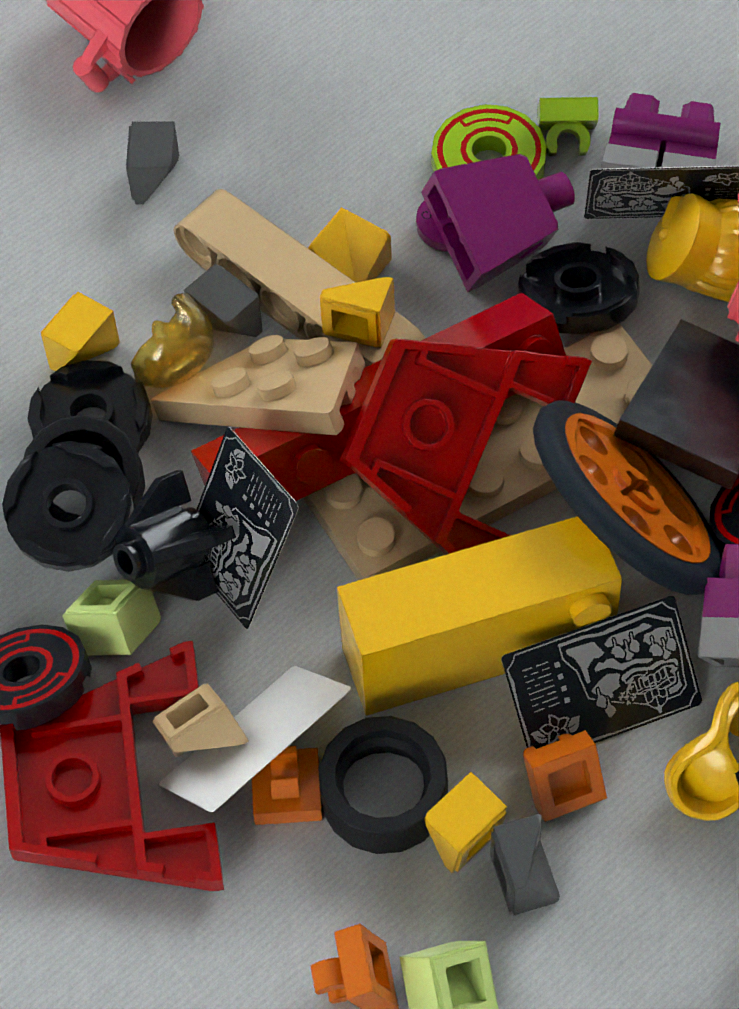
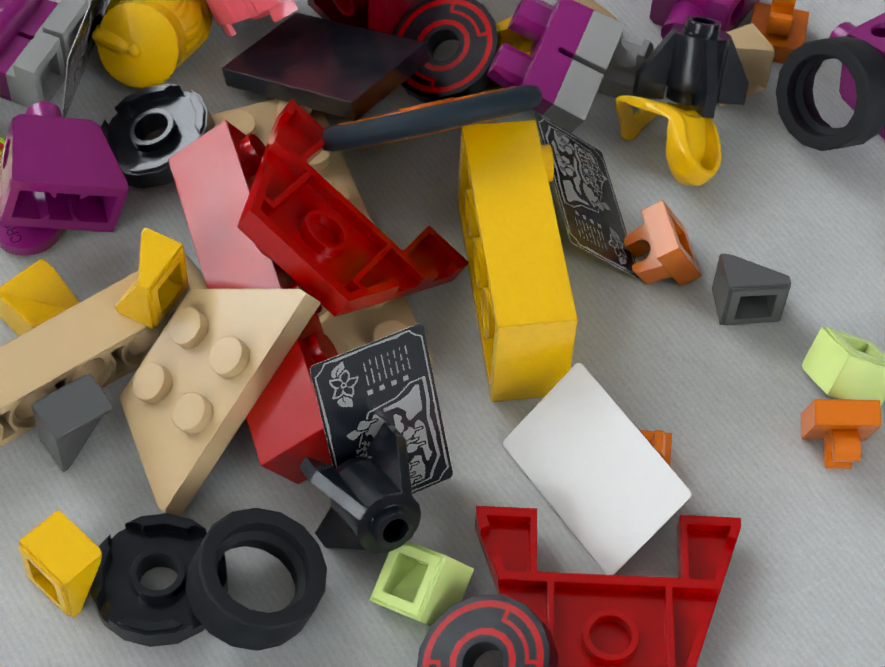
camera: 85 degrees left, 5 degrees down
(43, 477) = (283, 612): black tile -> none
(176, 347) = (111, 466): clear yellow hair -> none
(199, 723) = (577, 509): tan slope -> none
(378, 736) = (668, 341): black tyre -> none
(464, 821) = (707, 318): yellow slope -> none

